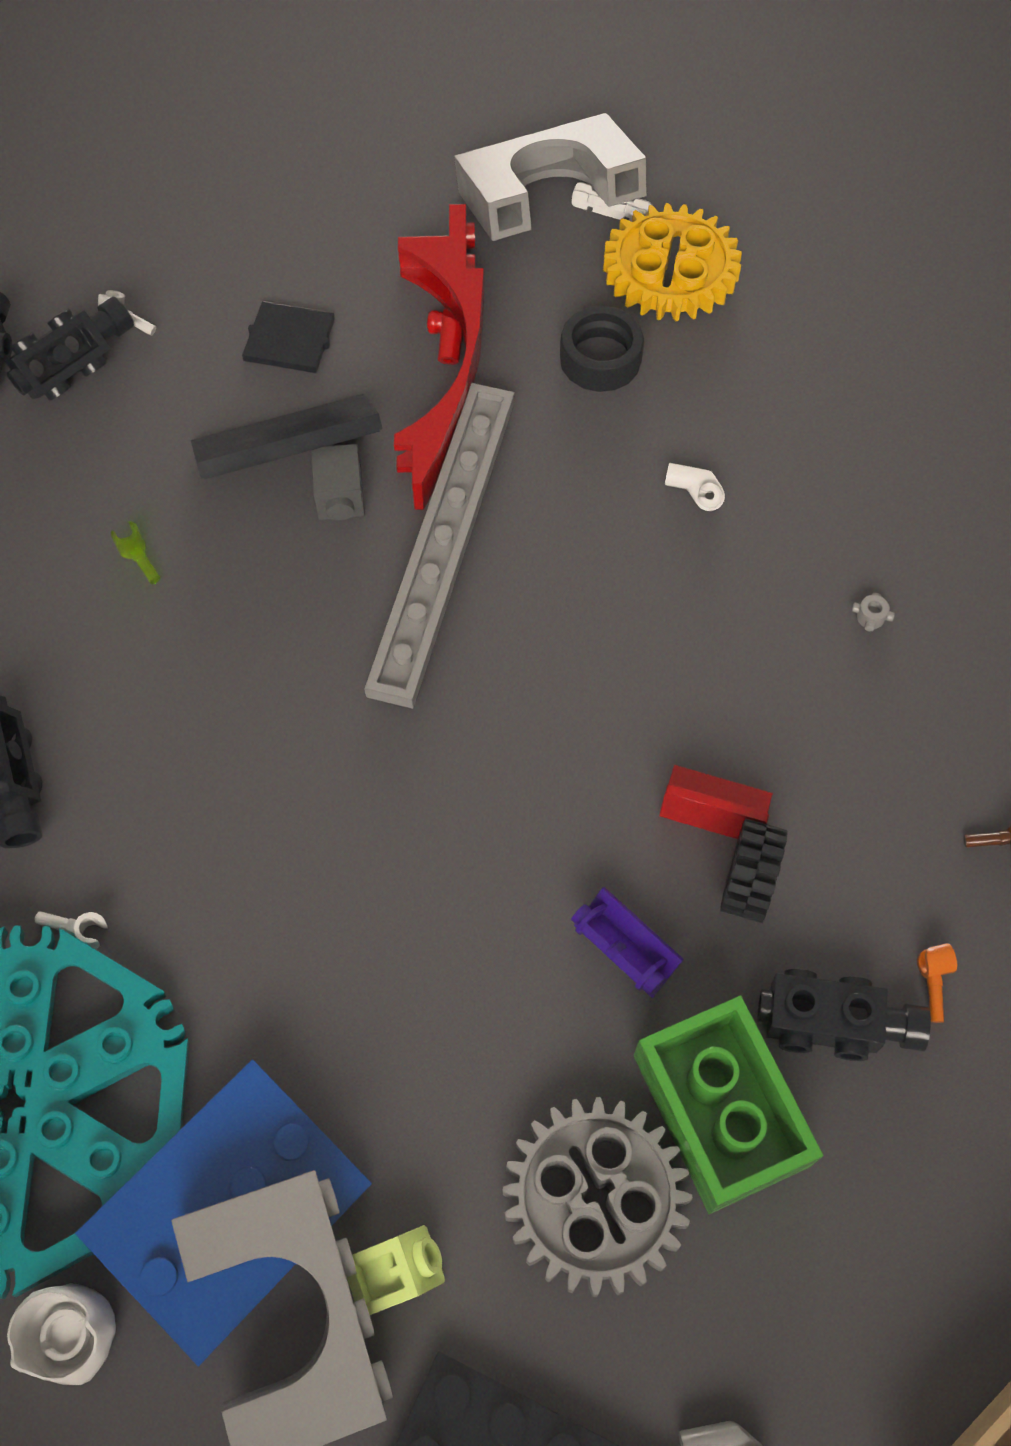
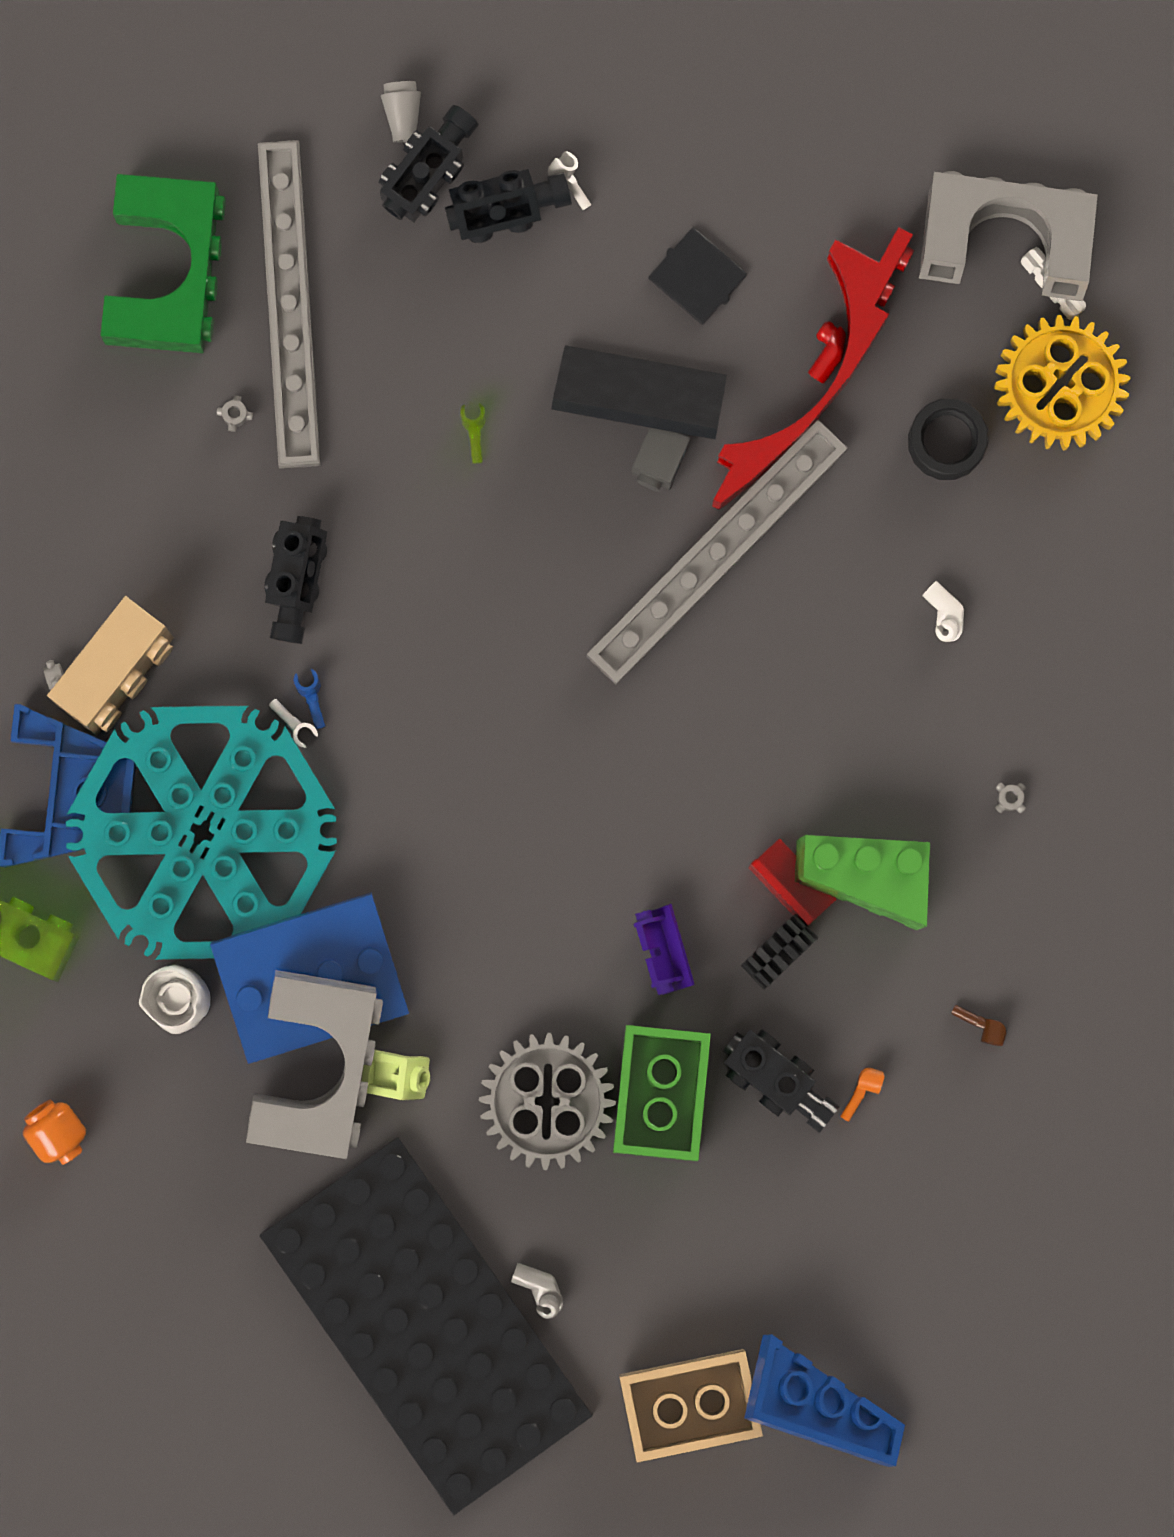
camera: 25 degrees right, 20 degrees up
(78, 884) = (311, 697): none -> blue hand
(792, 742) = (871, 873): none -> bright green wedge

